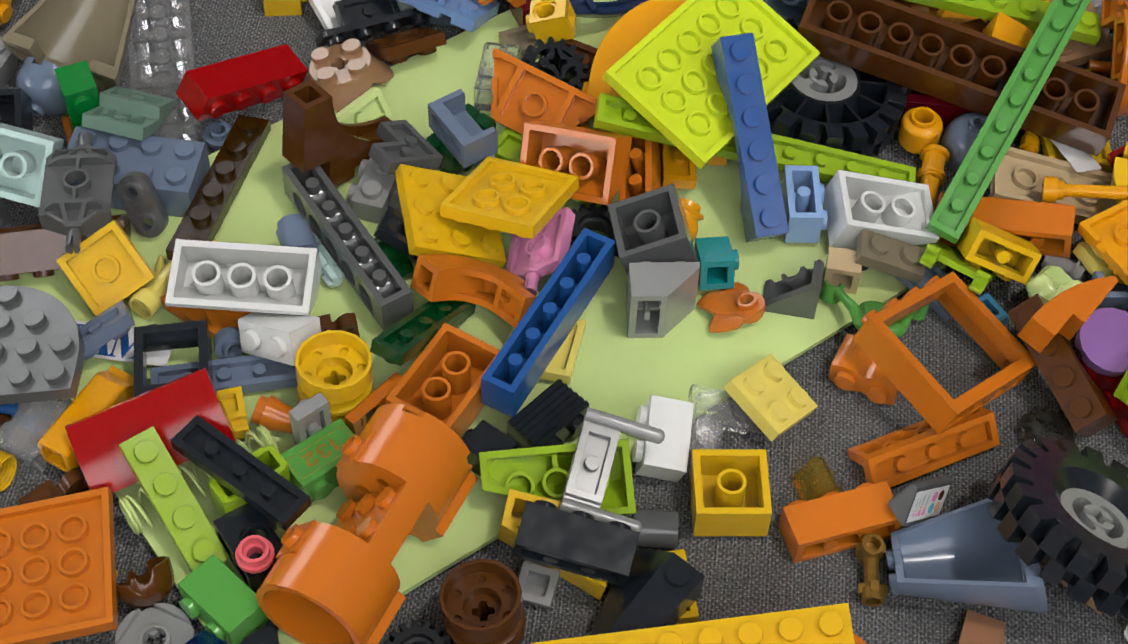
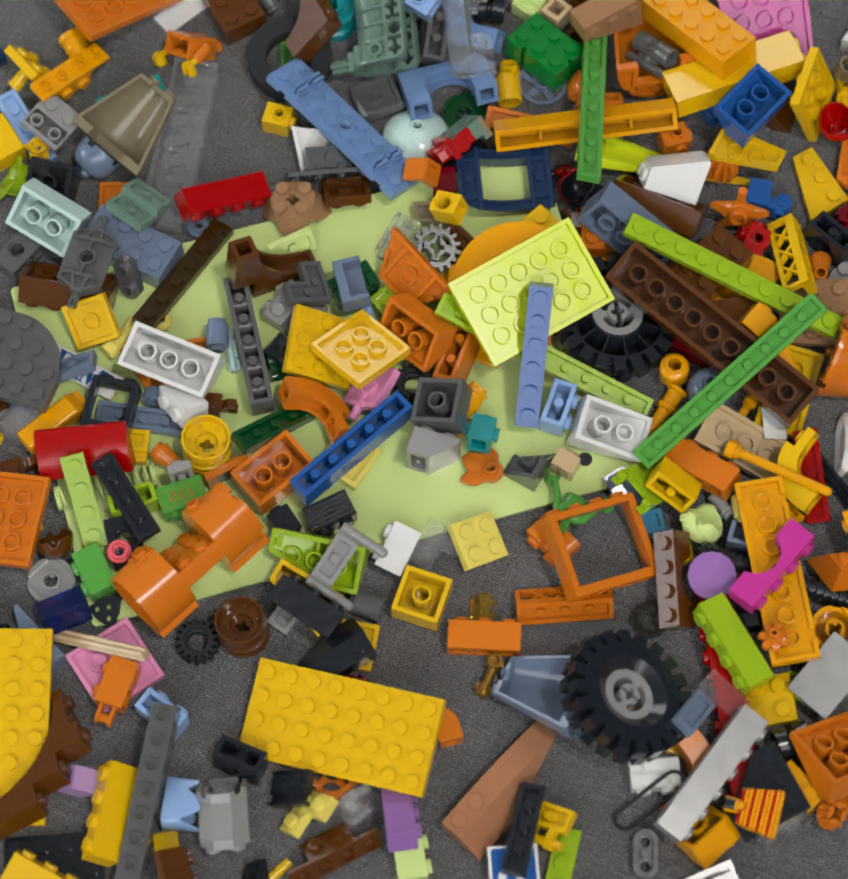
camera: 25 degrees right, 15 degrees up
(77, 91) = (110, 178): green brick -> none
(889, 256) = (596, 466): dark tan plate -> none
(920, 500) = (536, 643): slope -> none
(1066, 312) = (681, 550): orange slope -> none

